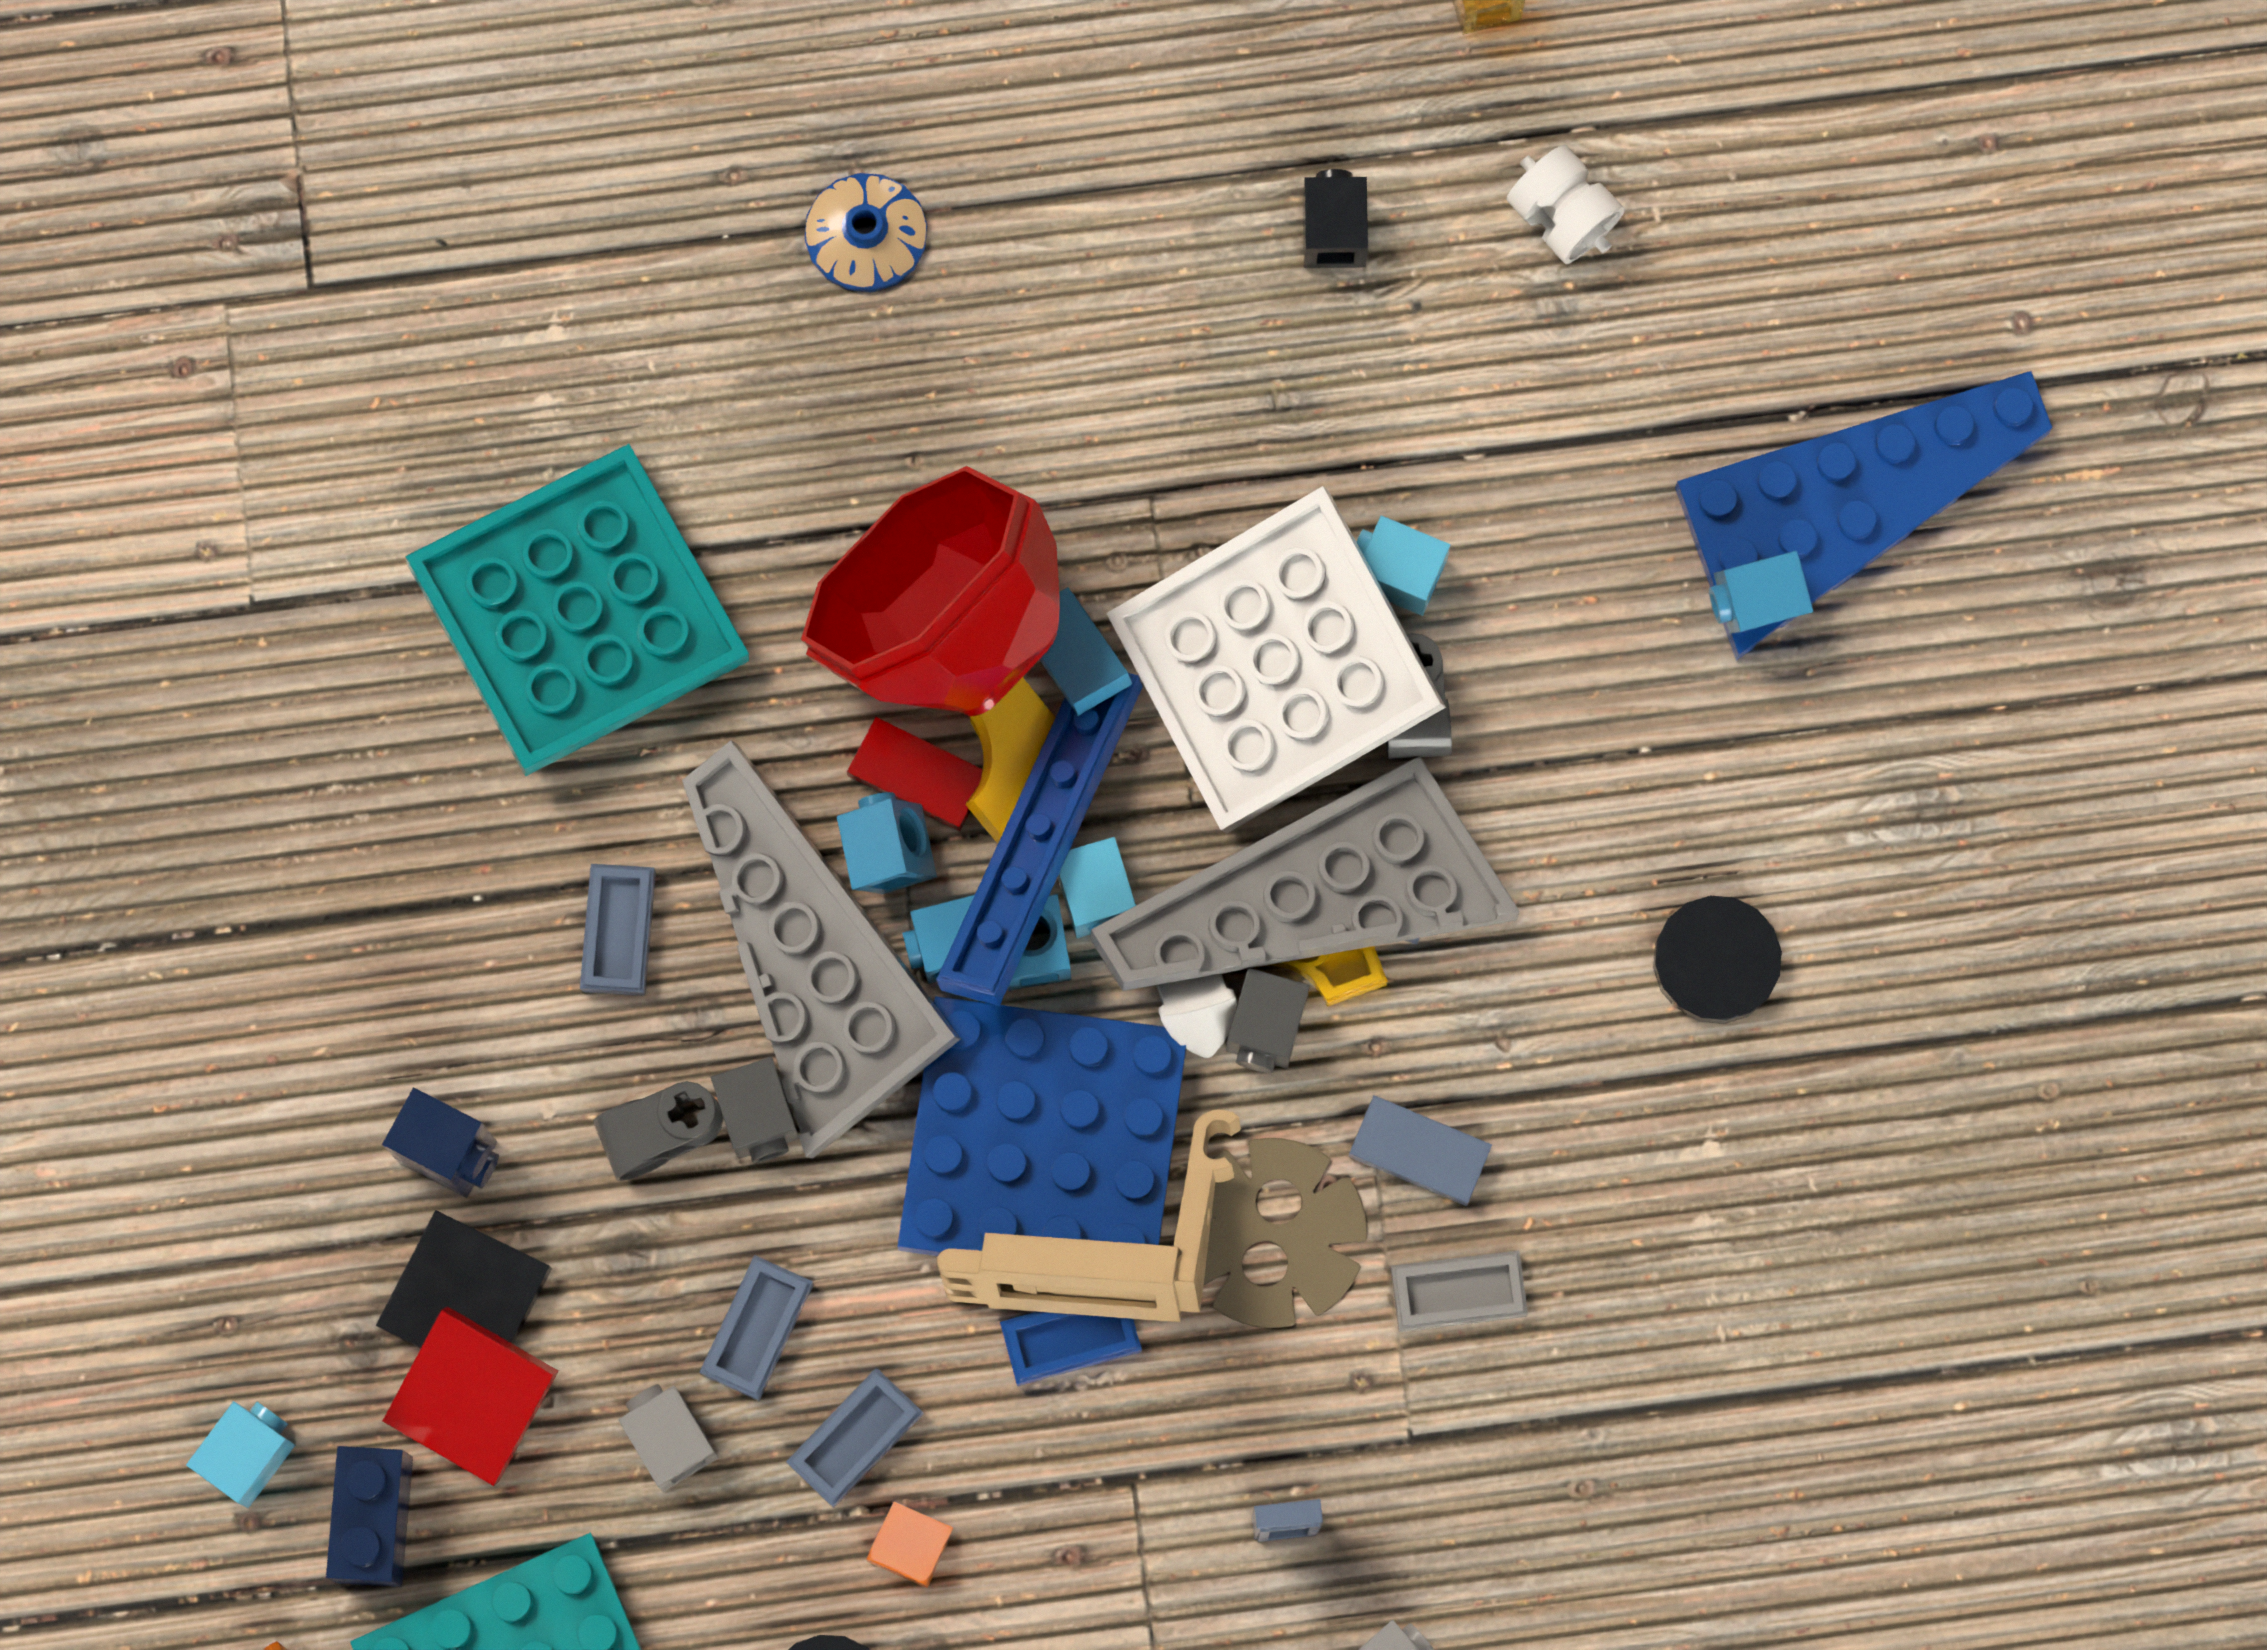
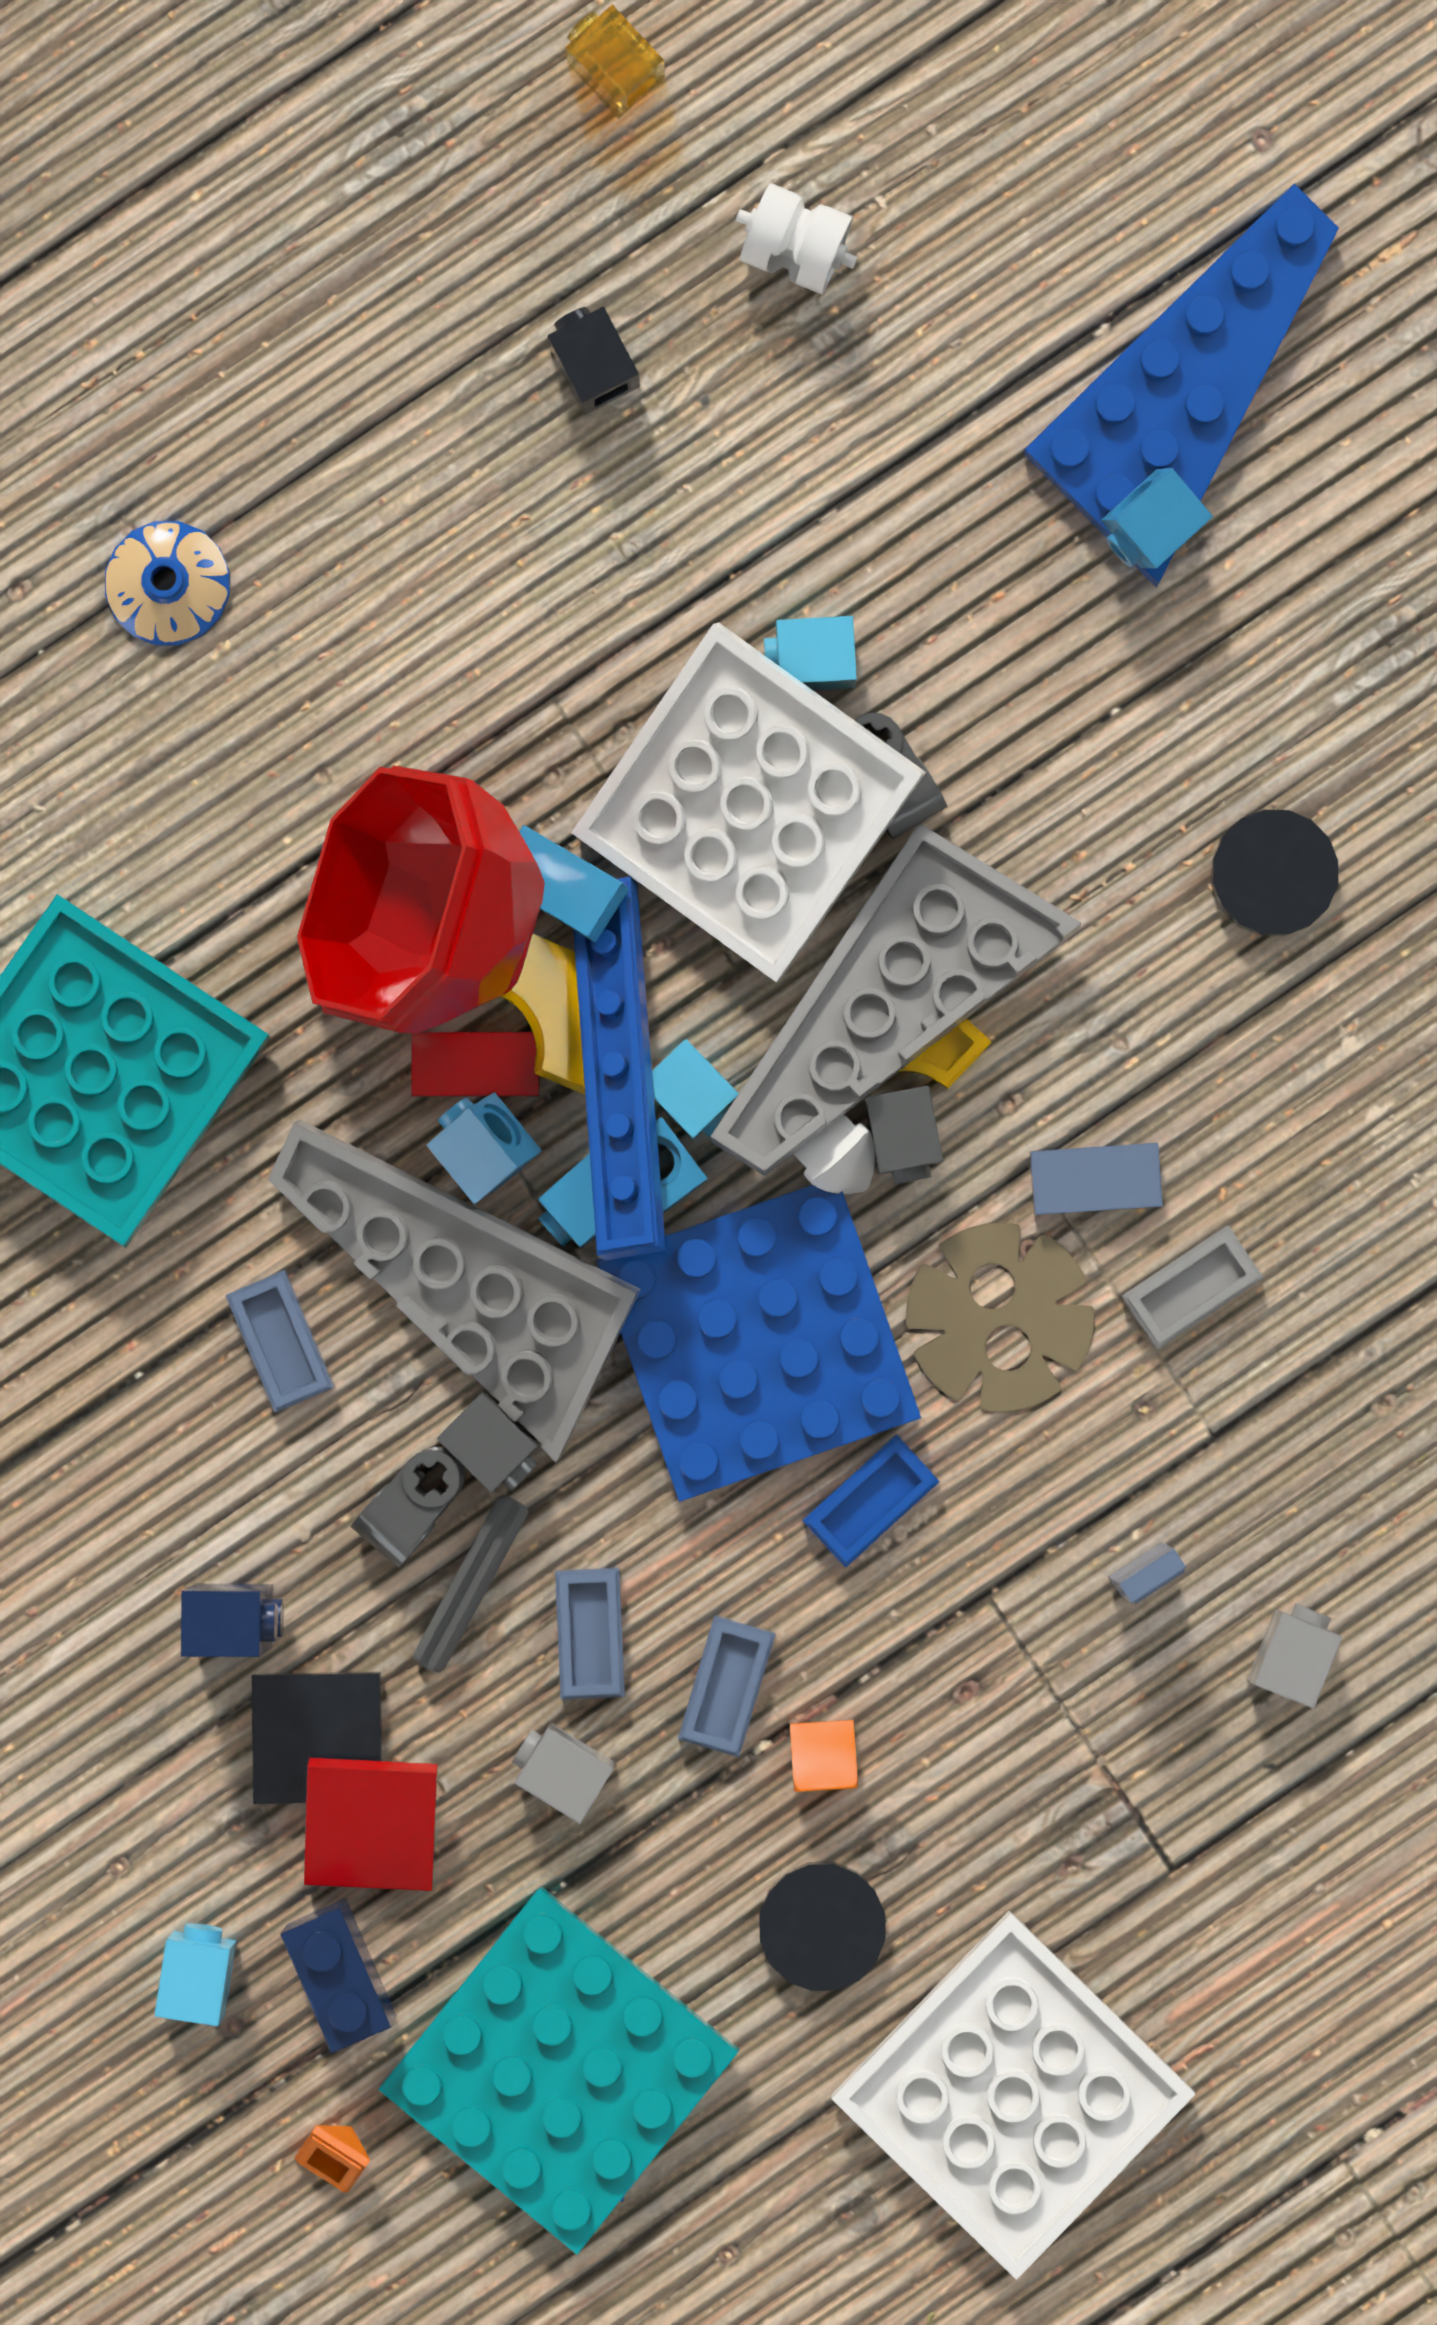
camera: 25 degrees left, 10 degrees up
(673, 1228) = (470, 1583): none -> dark grey axle
(1102, 1275) = (878, 1438): tan hinge -> none

